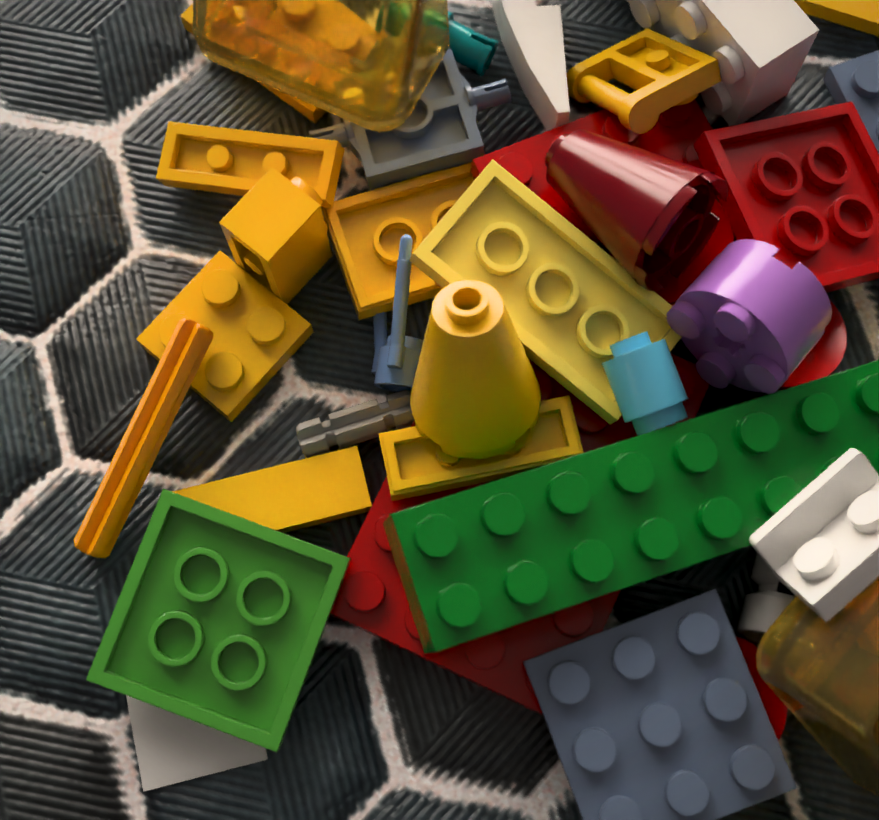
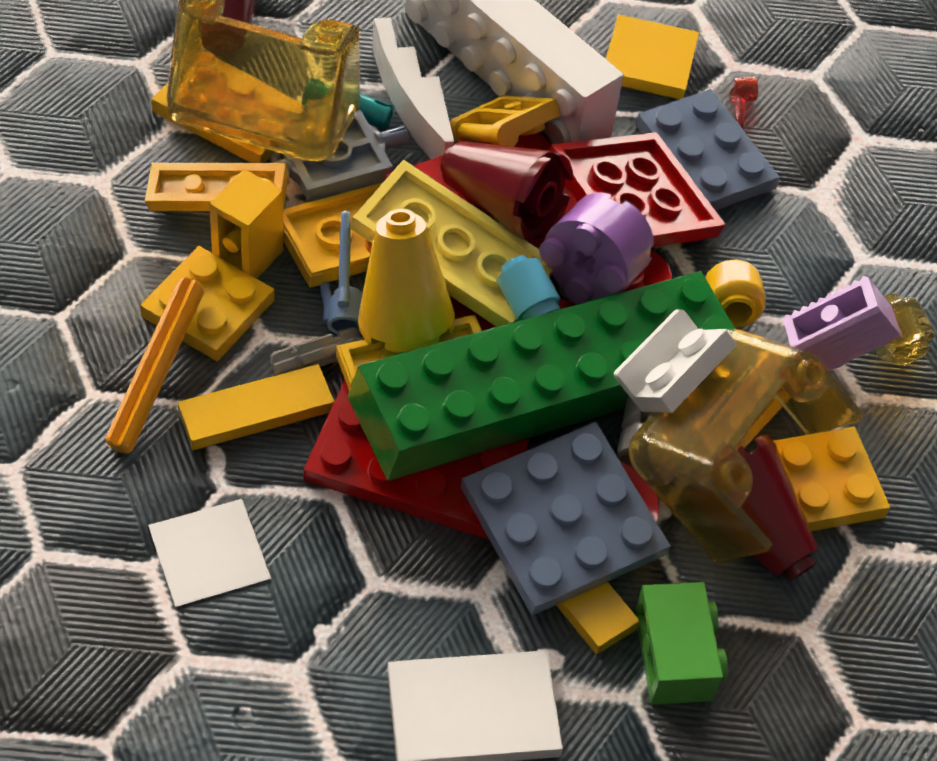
camera: 15 degrees left, 20 degrees down
(219, 620) = (228, 475): bright green plate -> none

